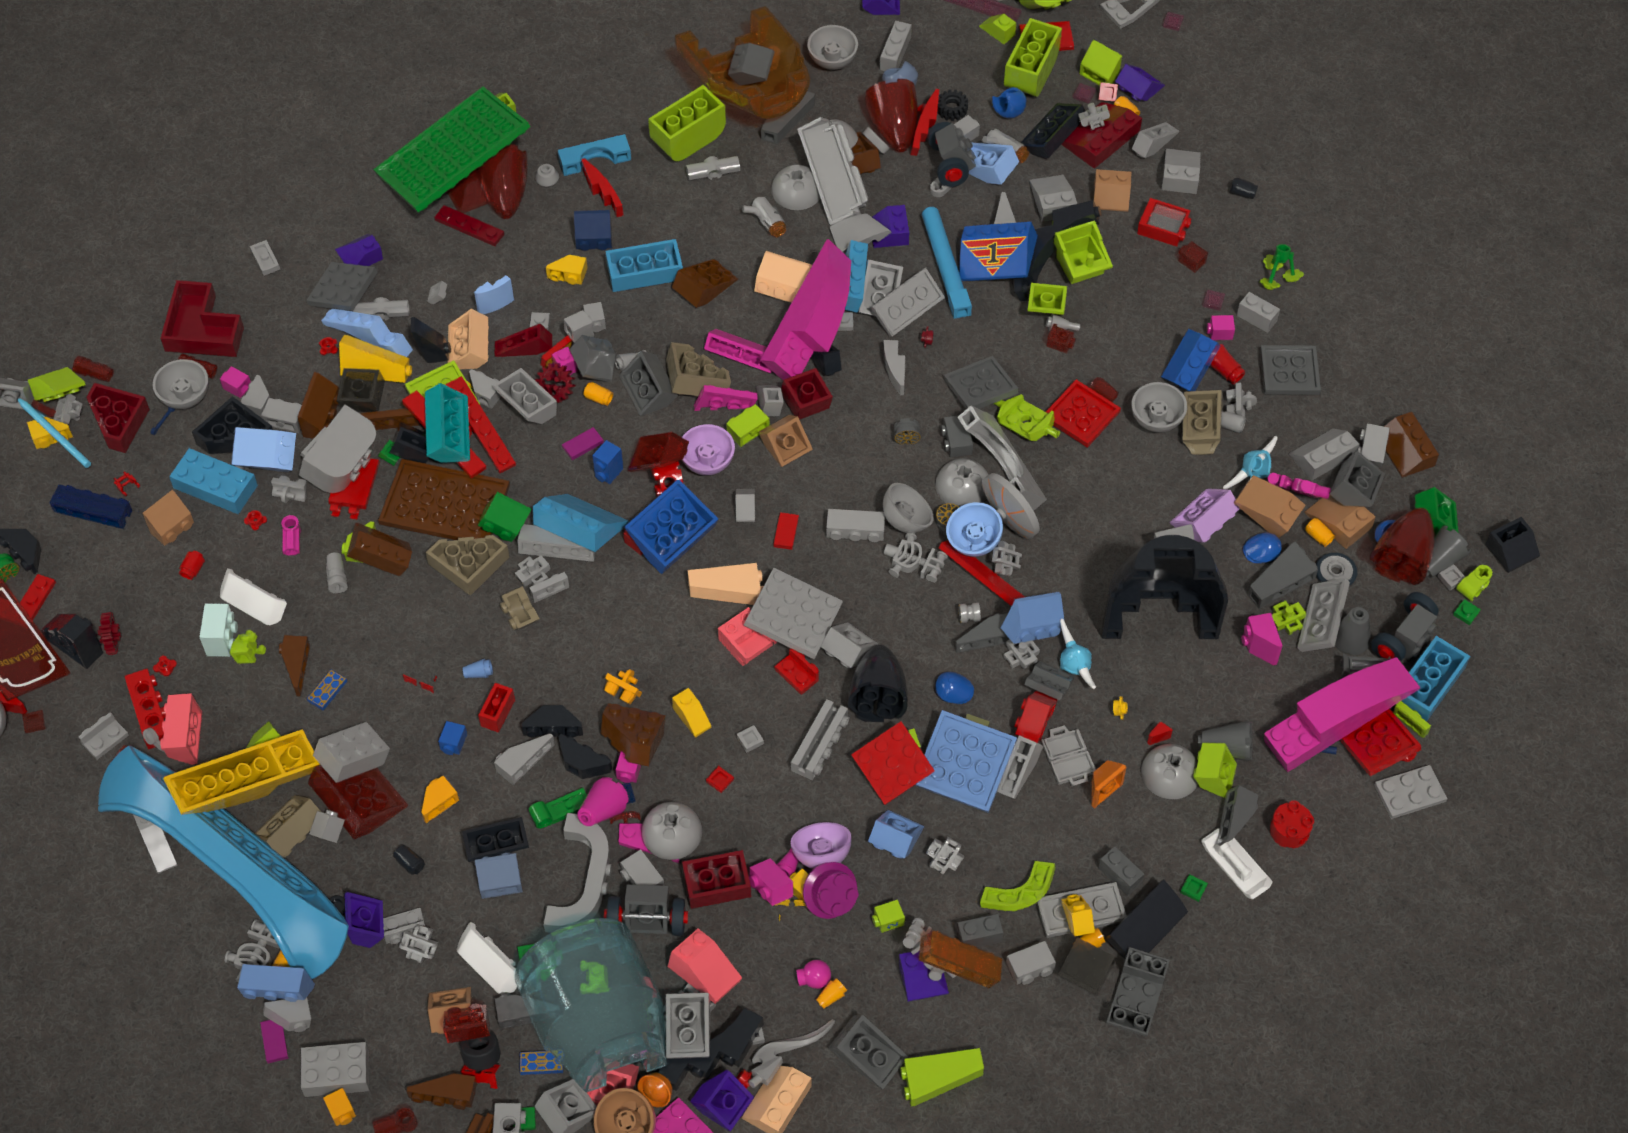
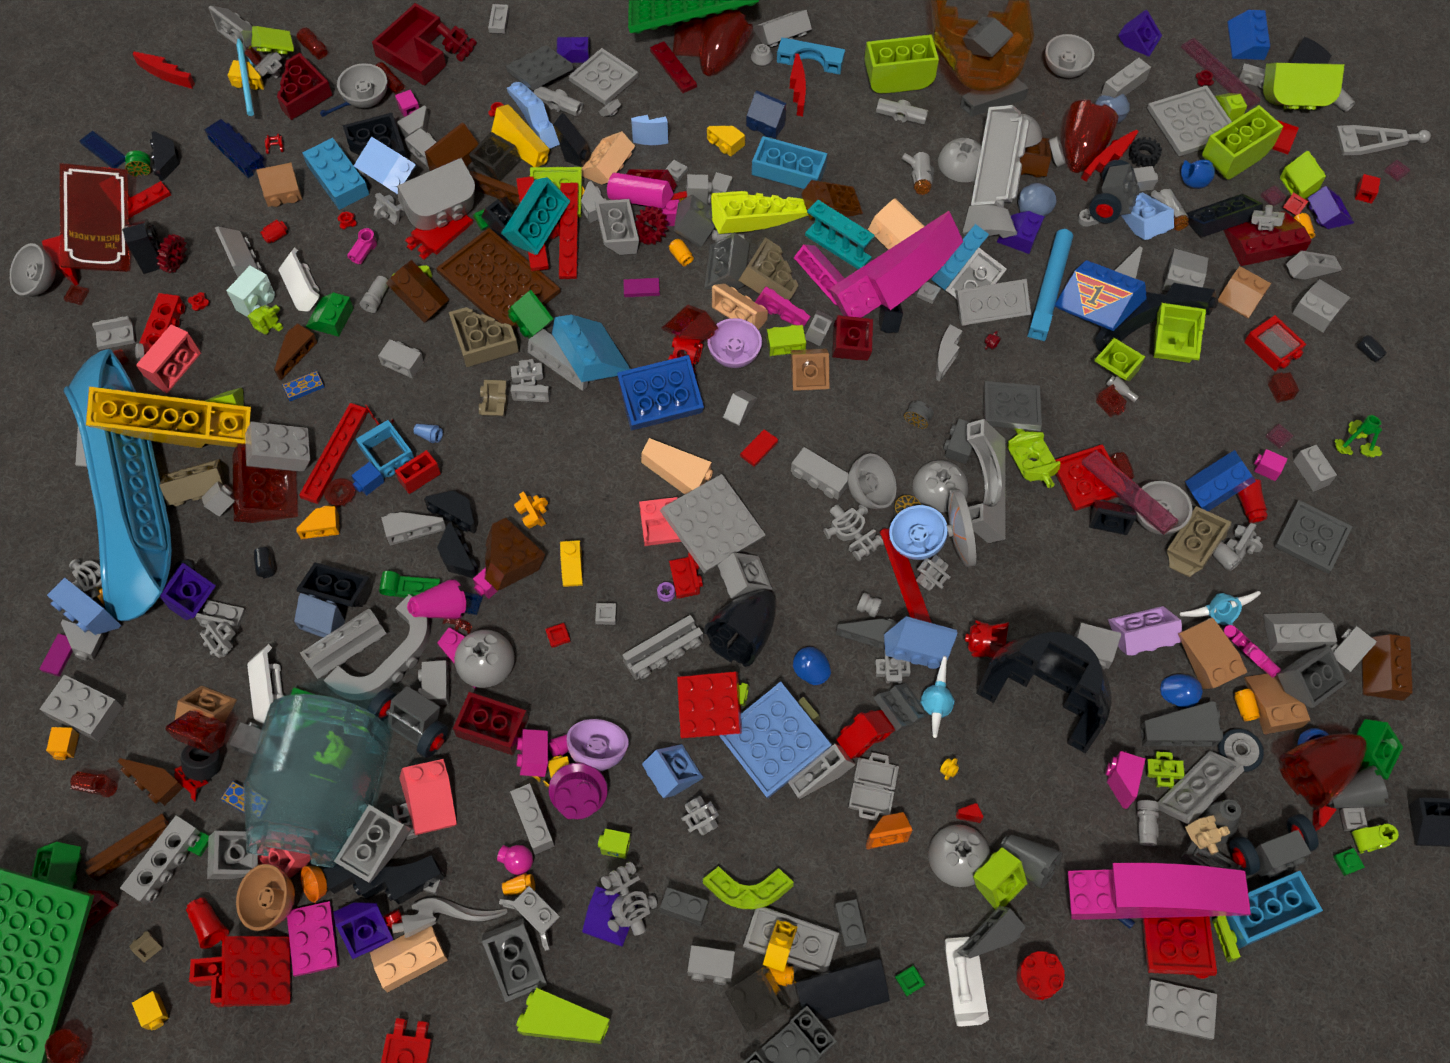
camera: 30 degrees right, 5 degrees up
(175, 603) = (237, 250): none -> light grey slope
(240, 298) = (456, 41): none -> dark red piece
(305, 612) = (331, 314): none -> green slope
(403, 733) = (333, 453): none -> red plate
(405, 617) = (401, 358): none -> light grey brick
(409, 265) = (603, 76): none -> light grey plate
(435, 692) = (375, 437): none -> dark azure window
(438, 757) = (335, 486): none -> clear red gear
(523, 355) = (639, 190): none -> dark pink brick
(536, 885) = (343, 643): none -> light grey brick
(550, 138) = (783, 27): none -> light grey slope
(607, 462) = (646, 312): blue brick -> none
(638, 327) = (747, 212): none -> neon yellow wedge
(684, 416) = (735, 305): none -> light nougat slope
(734, 318) = (835, 244): none -> teal fence
(789, 699) = (666, 598): none -> medium lavender bush
(806, 935) = (532, 819): none -> light grey brick
(864, 1001) = (536, 911): none -> light grey piece
(887, 192) = (1037, 199): none -> sand blue piece
(960, 959) = (645, 924): clear orange brick -> none
(961, 12) = (1205, 78): none -> dark red plate
(973, 56) = (1189, 119): none -> light grey plate
(1085, 589) = (986, 639): none -> red hat
(1122, 436) = (1112, 517): none -> black slope
(1125, 406) = (1130, 492): none -> clear pink tile
(1159, 49) = (1367, 188): none -> red brick
(1300, 665) = (1148, 822): none -> light grey axle
(1351, 646) = (1206, 834): none -> tan piece
(1427, 586) = (1321, 816): none -> red slope

